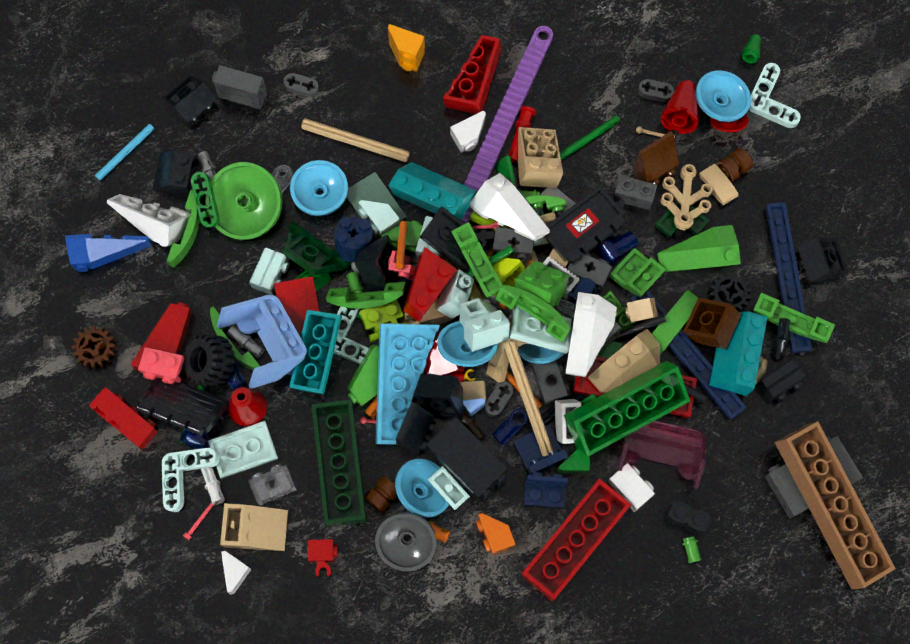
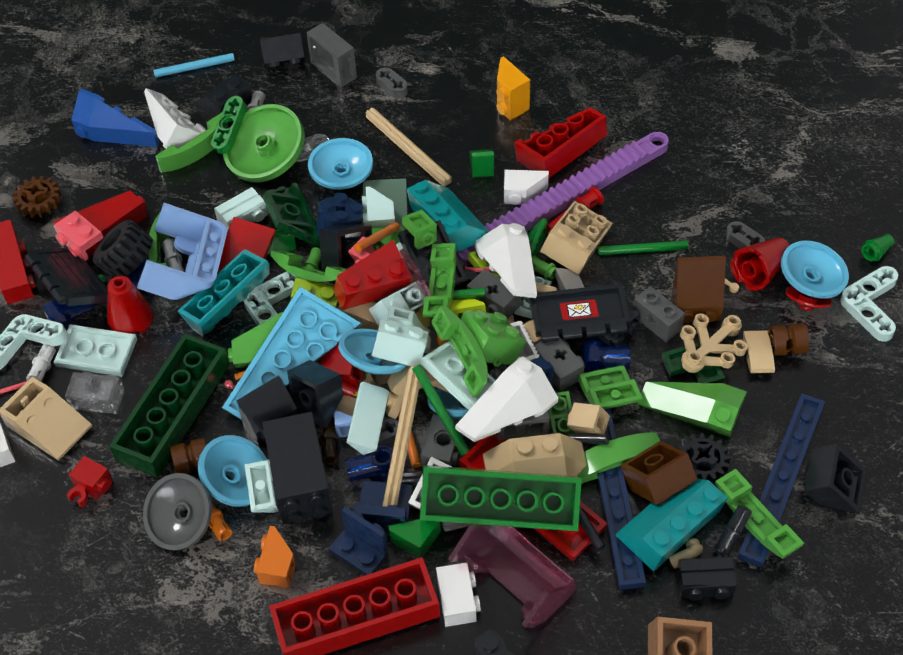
camera: 35 degrees right, 20 degrees down
(422, 123) = (482, 163): none -> green slope
(437, 224) = (421, 227): none -> bright green bracket
(458, 265) = (415, 273): none -> clear pink piece
(490, 394) = (367, 418): none -> light aqua slope
(542, 362) = (440, 409): none -> green bar
(553, 203) = (560, 277): bright green slope -> none

